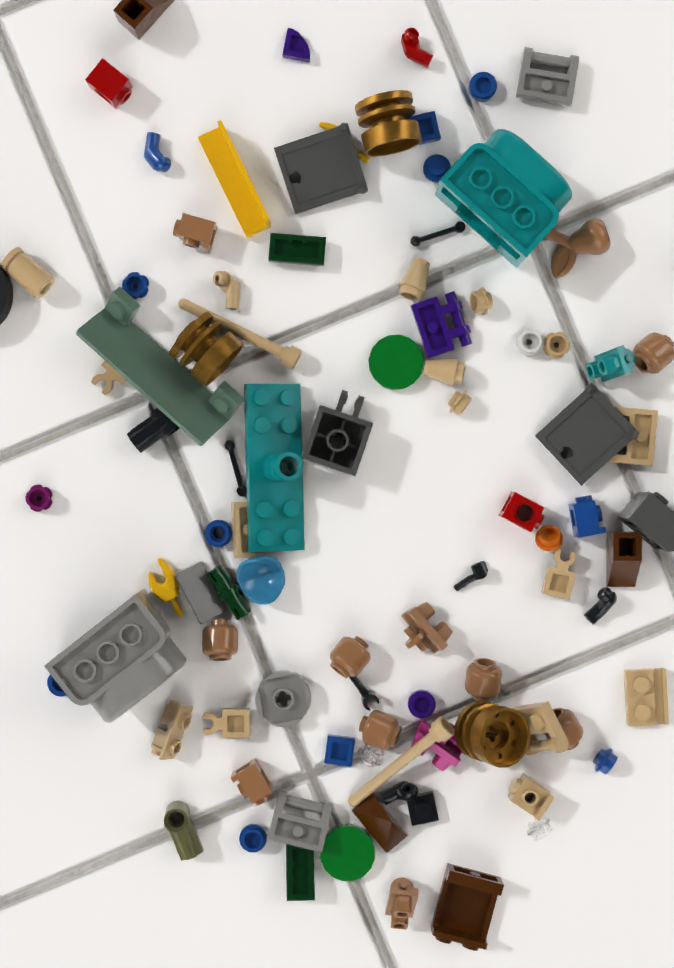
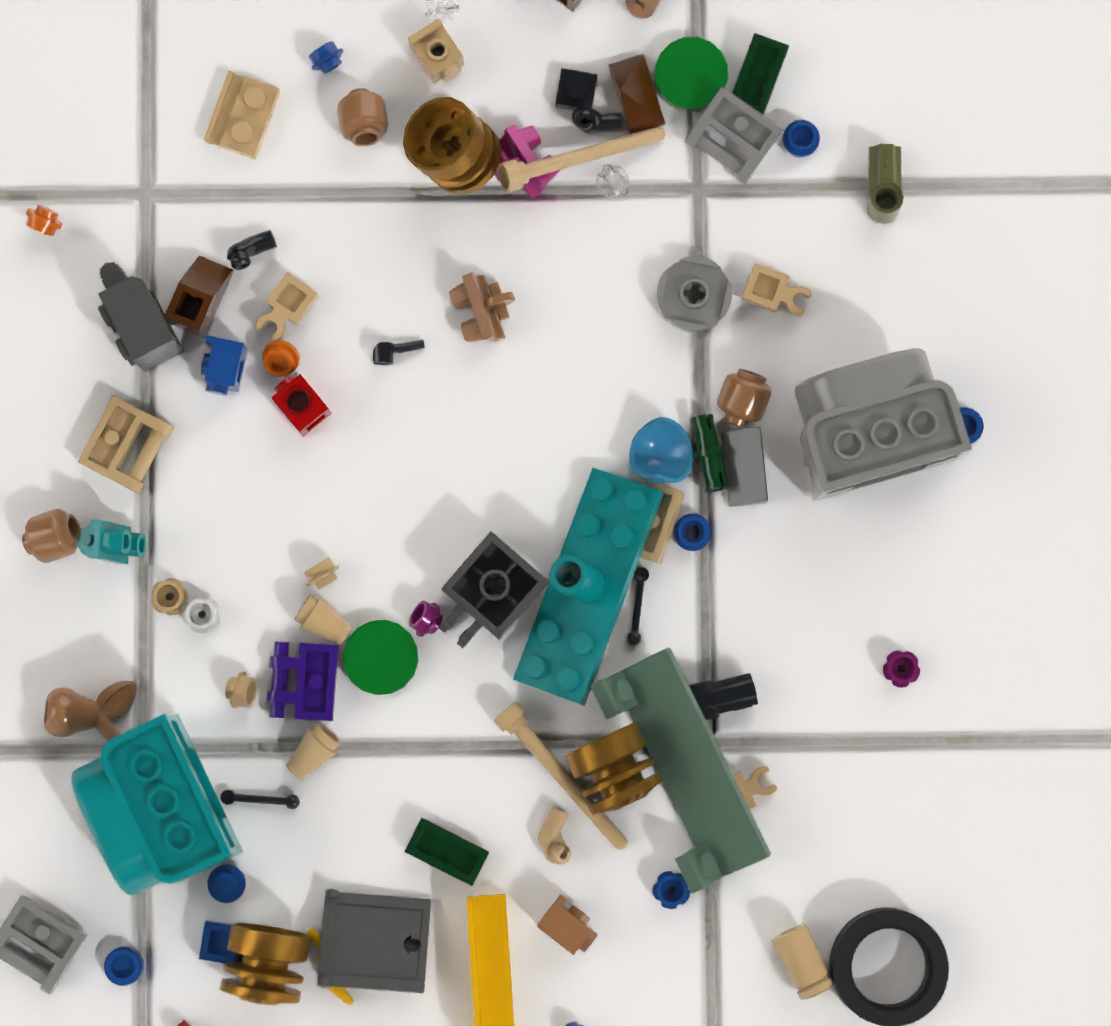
camera: 160 degrees left, 5 degrees down
(168, 742) = (859, 298): tan hinge -> none
(169, 589) = (782, 487): yellow hand -> none
(253, 782) = (773, 206): medium nougat brick -> none
(339, 750) = (650, 202): blue tile -> none
(350, 656) = (589, 312): medium nougat head -> none
(365, 694) = (590, 262): black hand -> none
(376, 400) = (425, 618): none -> magenta plate
(380, 730) = (589, 206): medium nougat head -> none
(421, 704) = (524, 218): dark purple tile -> none
(483, 679) = (435, 217): medium nougat head -> none
(543, 720) = (384, 137): tan plate -> none
(589, 429) = (174, 473): dark grey container -> none

